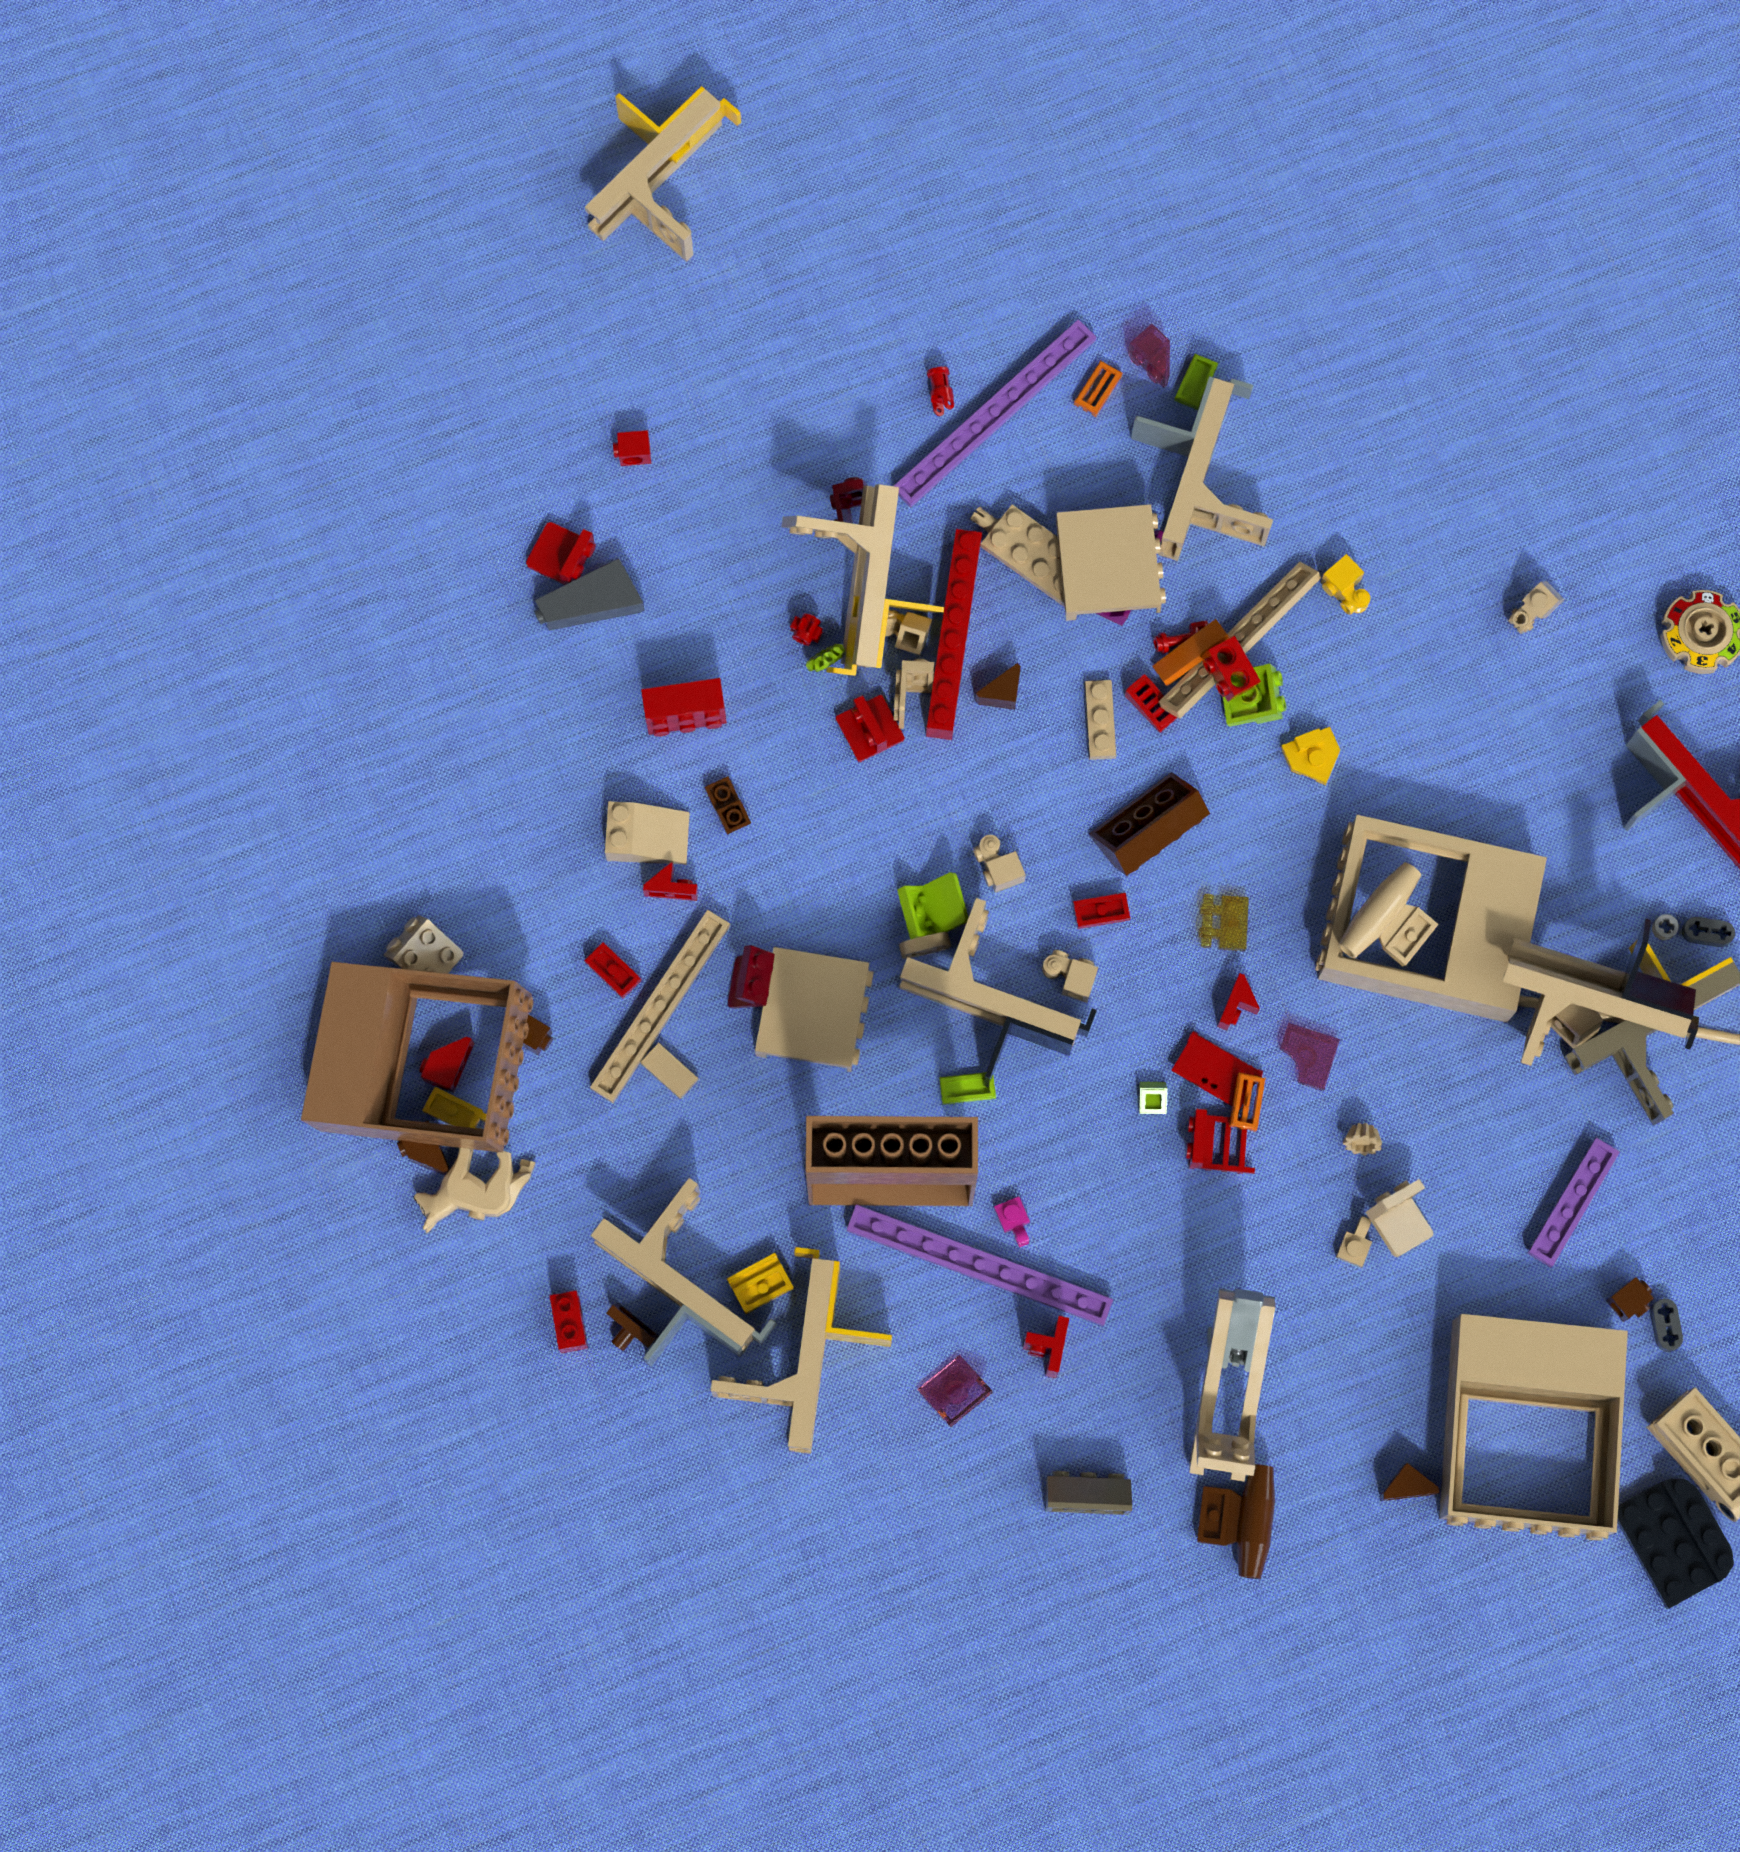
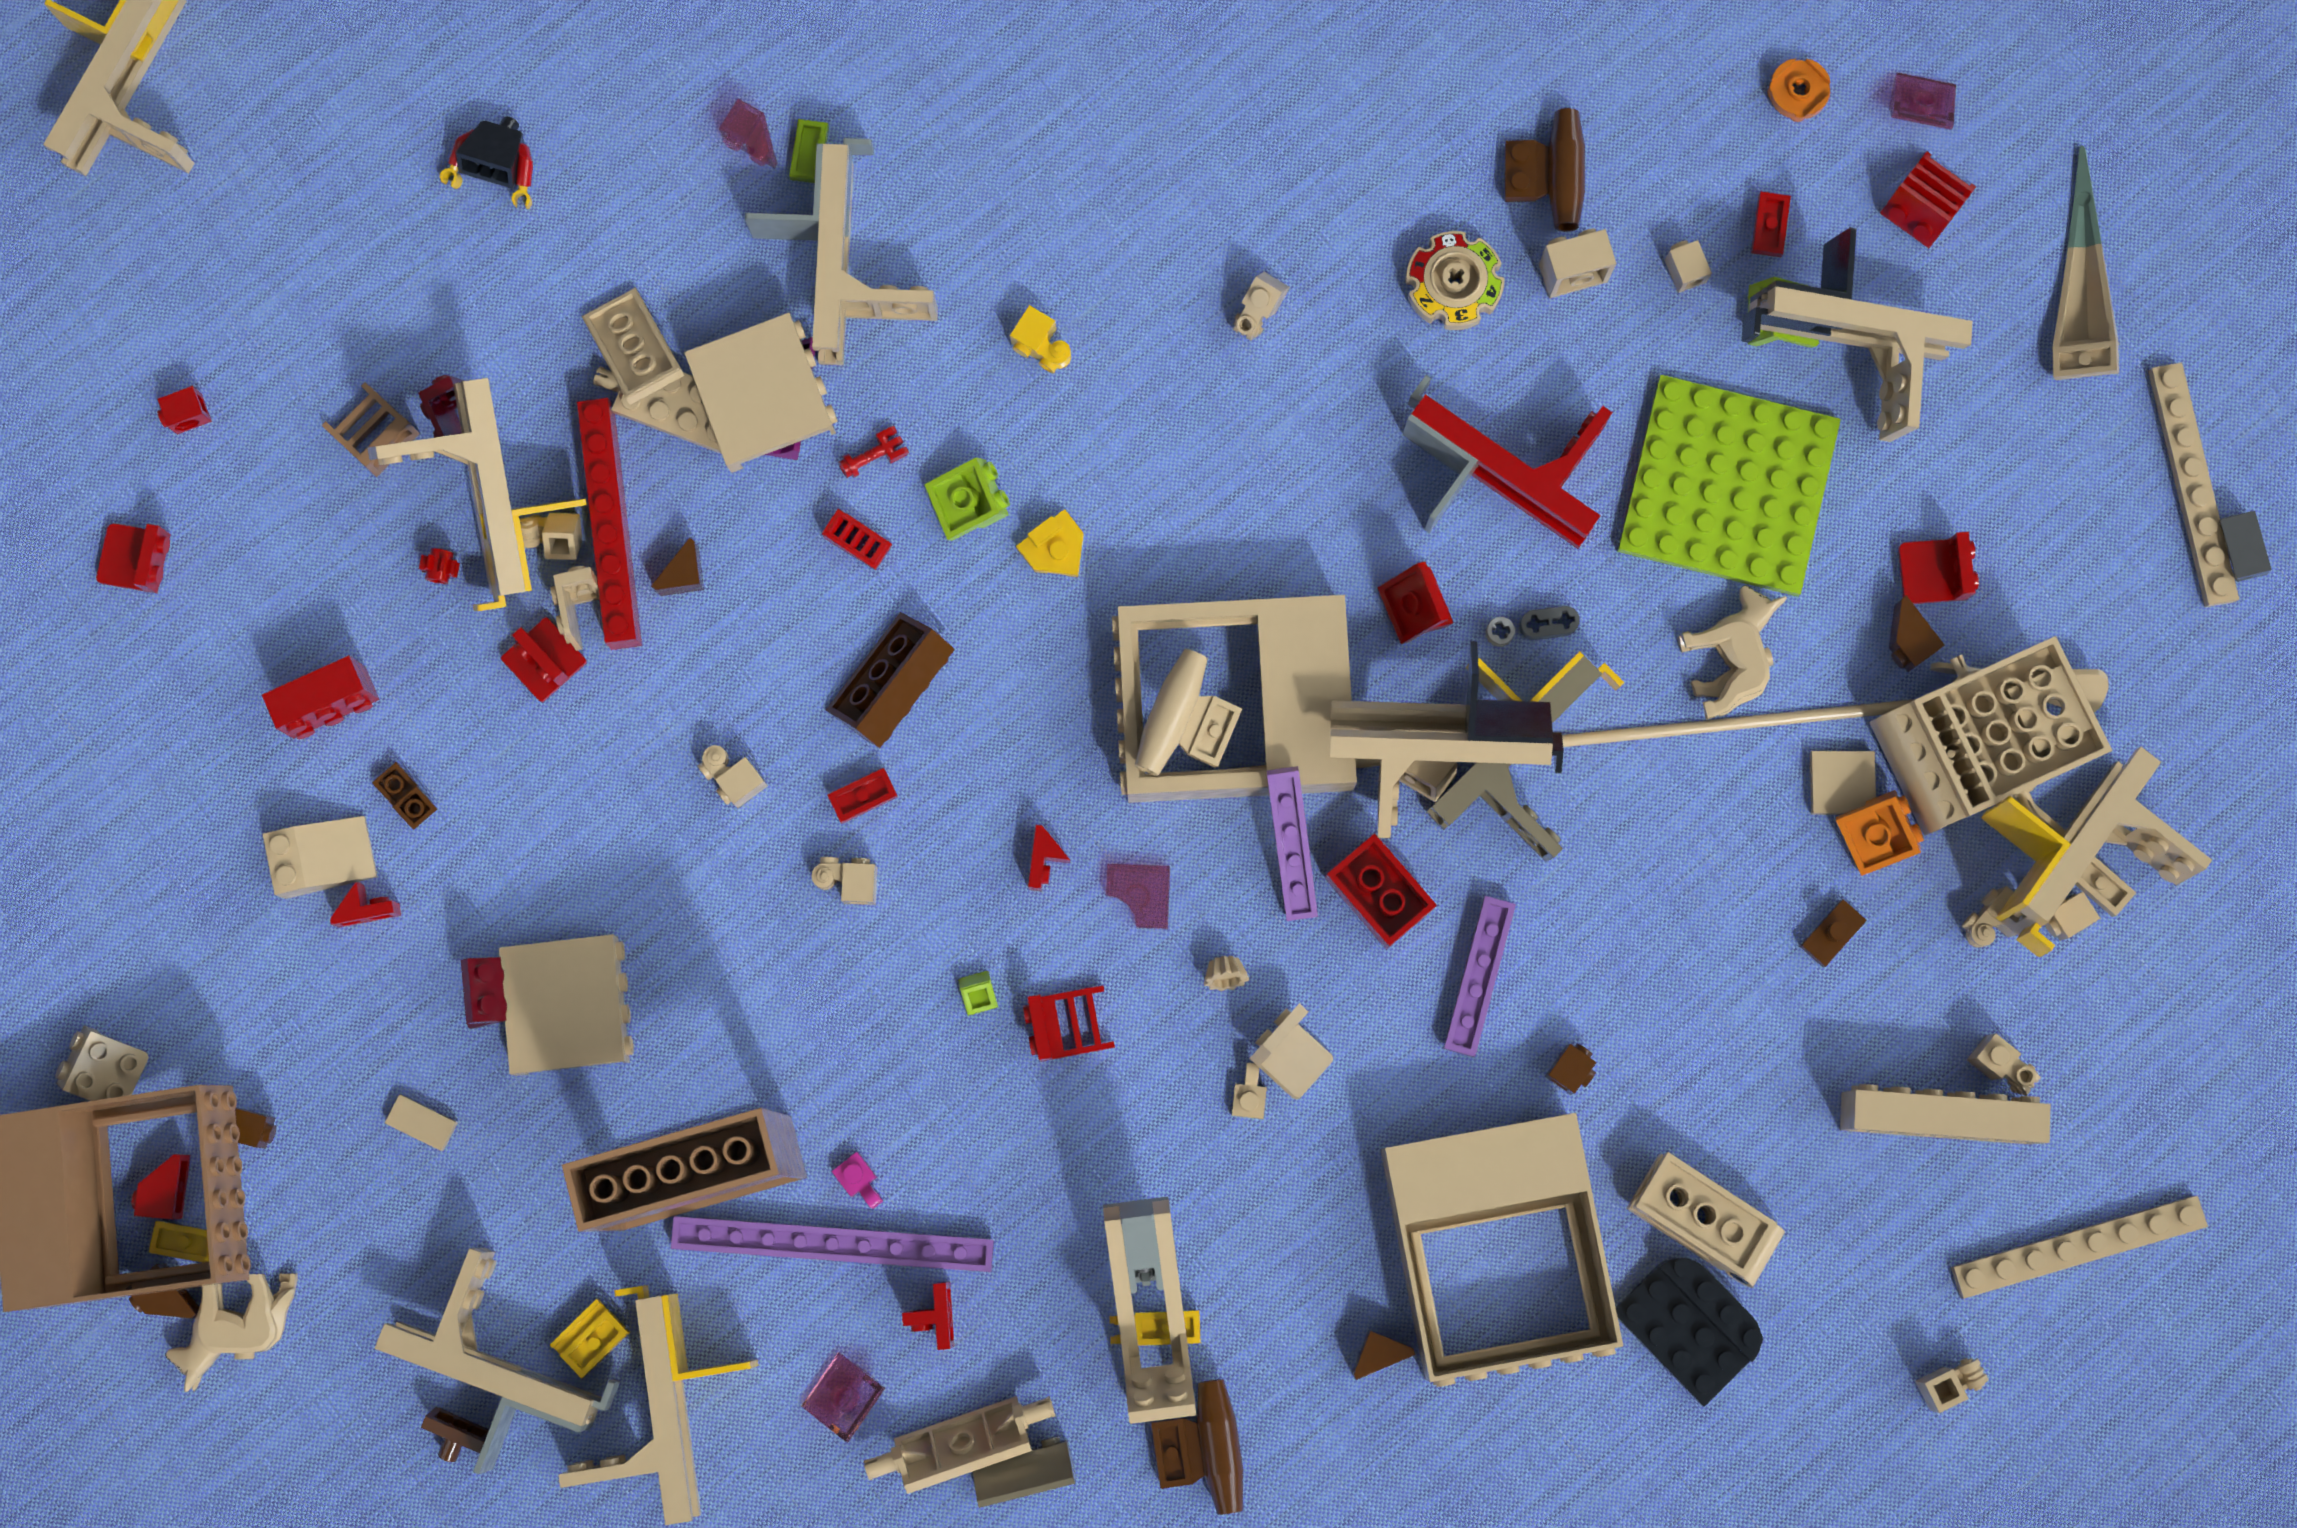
camera: 15 degrees left, 5 degrees up
(568, 1321) = (382, 1448): red brick -> none
(591, 598) = (182, 599): dark grey slope -> none
(612, 970) = (324, 1025): red plate -> none
(660, 1006) = (389, 1052): tan plate -> none
(774, 526) = (396, 432): none -> medium nougat plate
(825, 658) = (469, 593): lime gear -> none
(925, 945) = (672, 893): tan beam -> none
(933, 906) = (668, 849): lime bracket -> none
(940, 314) = (493, 155): none -> black torso
(941, 392) = (519, 243): red piece -> none
(966, 1088) = (766, 1043): lime tile -> none
(994, 413) = (587, 253): medium lavender plate -> none
(1012, 497) = (632, 346): none -> tan tile
(1015, 1014) = (724, 936): tan piece -> none
(1044, 1455) = (961, 1444): none -> tan plate
(1087, 406) = (709, 199): orange tile -> none
(1100, 719) = (803, 574): tan plate -> none
(1190, 652) = (884, 469): orange tile -> none
(1218, 1067) = (1043, 937): red door -> none
(1229, 1411) = (1154, 1330): none -> yellow hinge
(1233, 922) = (1015, 768): clear yellow plate -> none
(1237, 666) = (938, 472): red brick -> none
(1248, 633) = (935, 438): tan plate -> none
(1257, 1103) = (1084, 970): orange tile -> none
(1448, 1047) = (1292, 843): none -> medium lavender plate
(1510, 1108) = (1380, 891): none -> red brick
(1600, 883) = (1415, 603): none -> red bracket
(1673, 1325) = (1611, 1088): dark grey beam -> none

